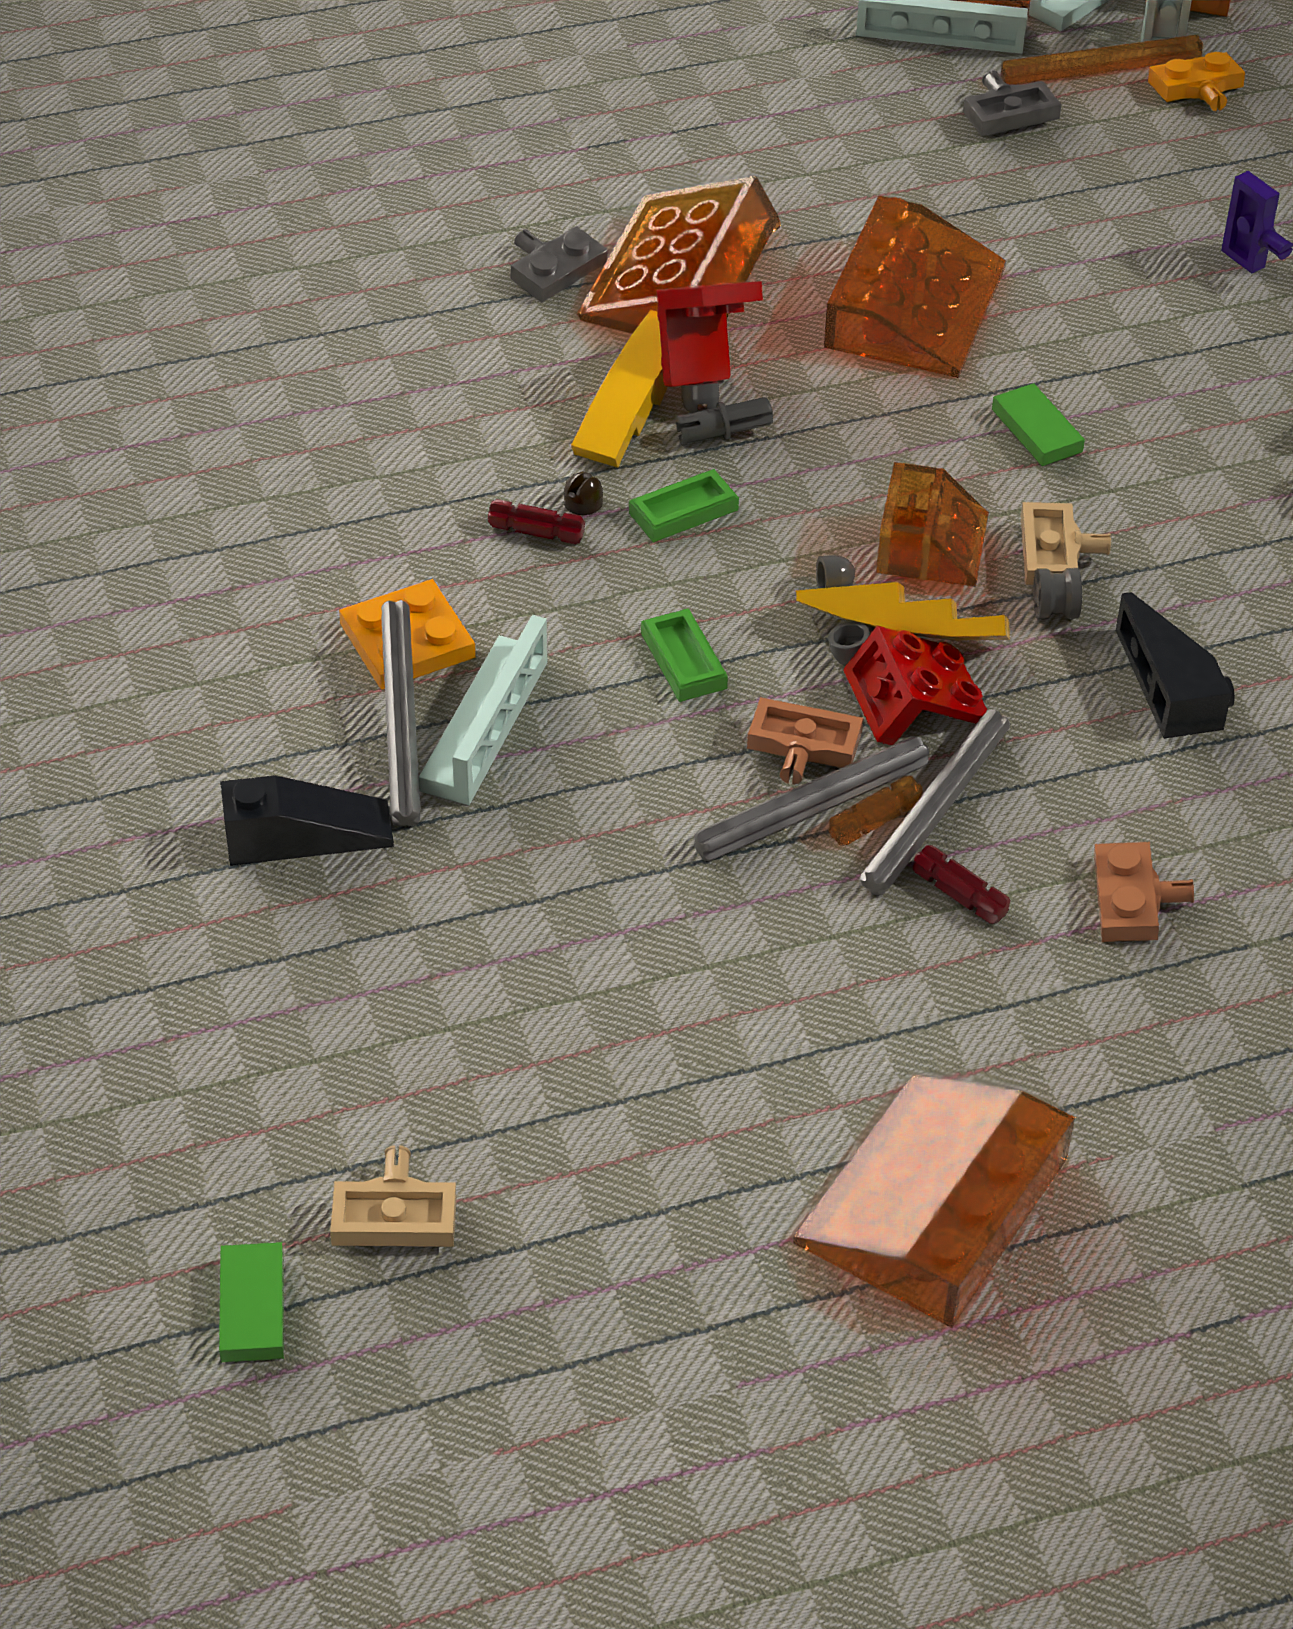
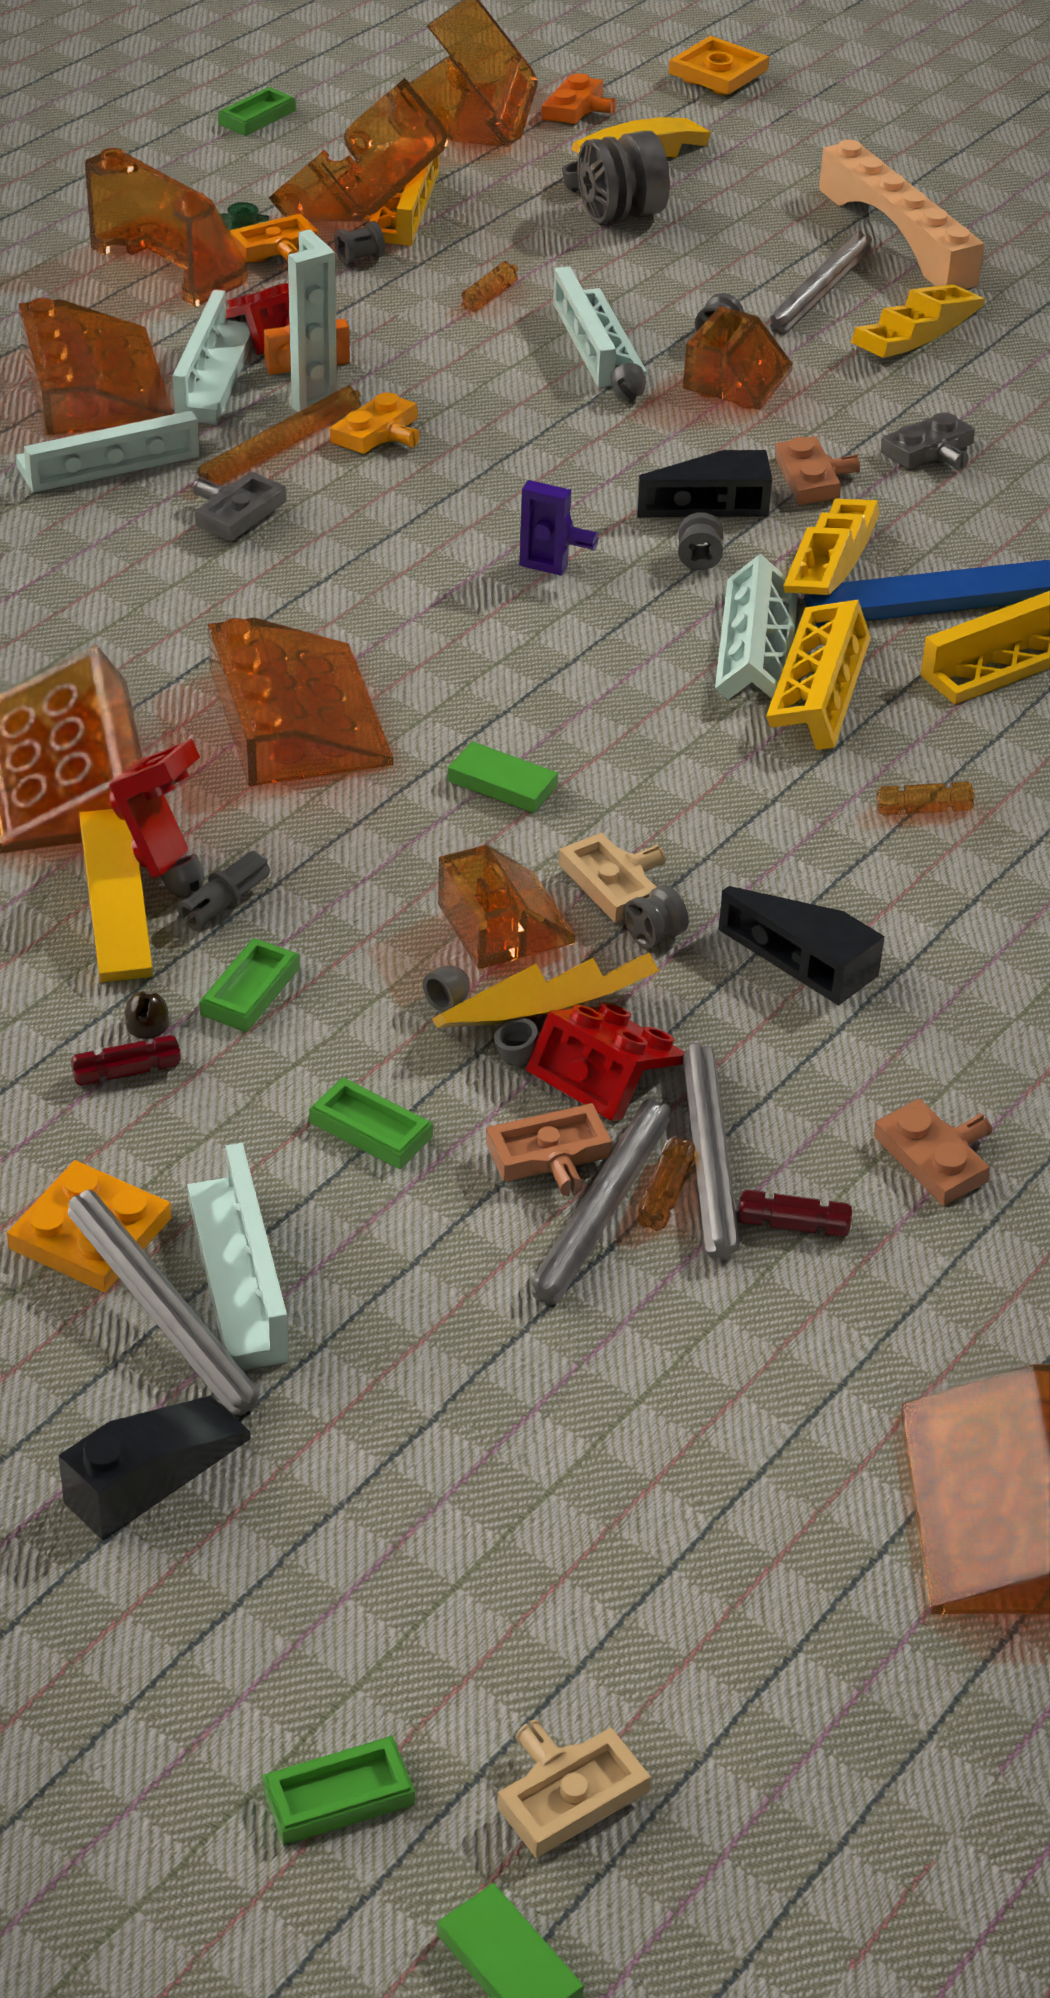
camera: 35 degrees left, 5 degrees down
(237, 1121) = (338, 1790): none -> bright green tile

